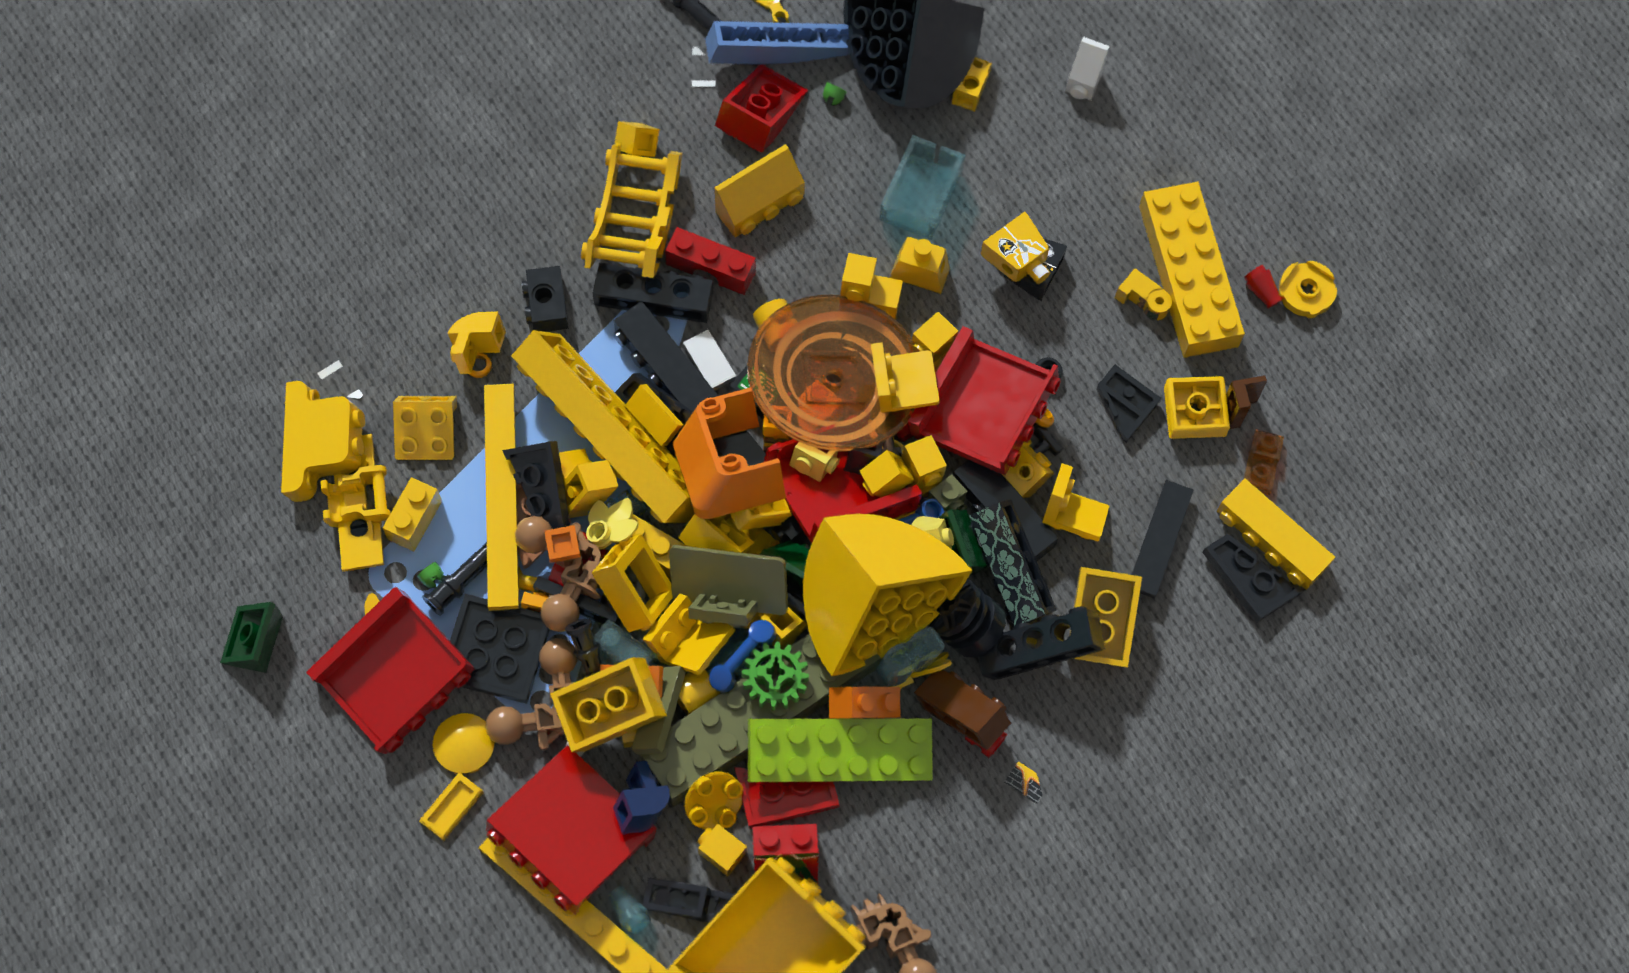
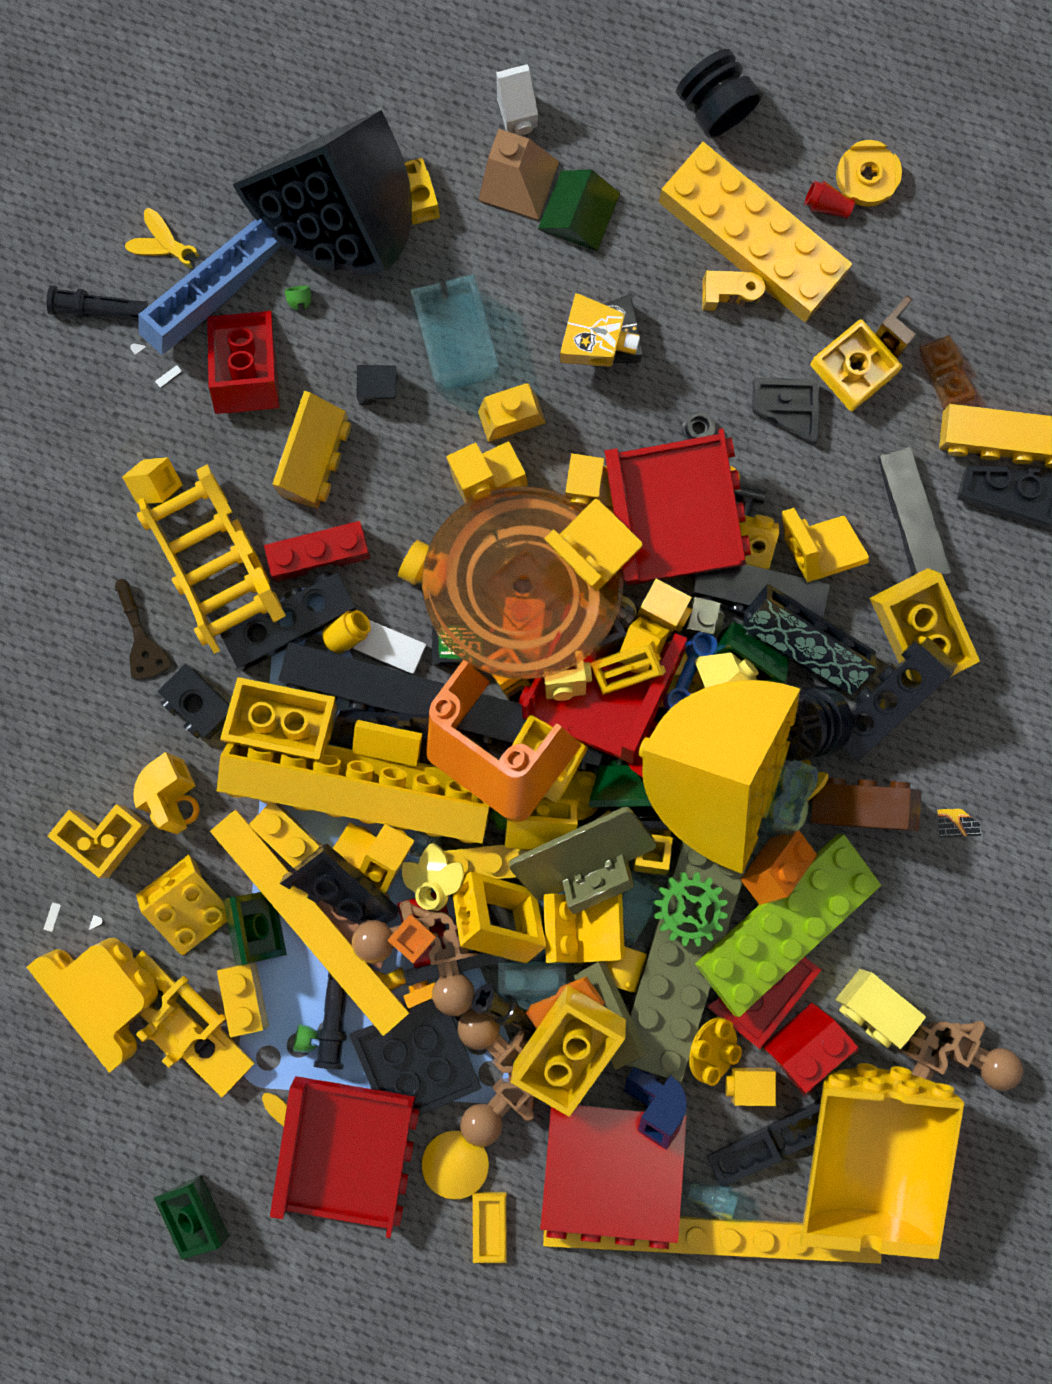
camera: 35 degrees left, 15 degrees up
(407, 343) = (100, 846): none -> yellow brick
(461, 473) = (254, 928): none -> dark green slope
(532, 420) = (284, 834): none -> yellow brick
(542, 235) = (141, 641): none -> dark brown piece
(594, 345) = (280, 719): none -> yellow slope
(687, 325) = (346, 631): none -> yellow brick
(722, 676) = (649, 882): blue bar -> none
(841, 181) = (376, 383): none -> black panel
(860, 859) = (885, 1012): none -> light yellow brick
(883, 483) = (653, 659): none -> yellow tile
(1050, 119) = (517, 175): none -> medium nougat slope
(1078, 171) = (580, 208): none -> dark green slope
(1235, 159) = (718, 93): none -> black wheel

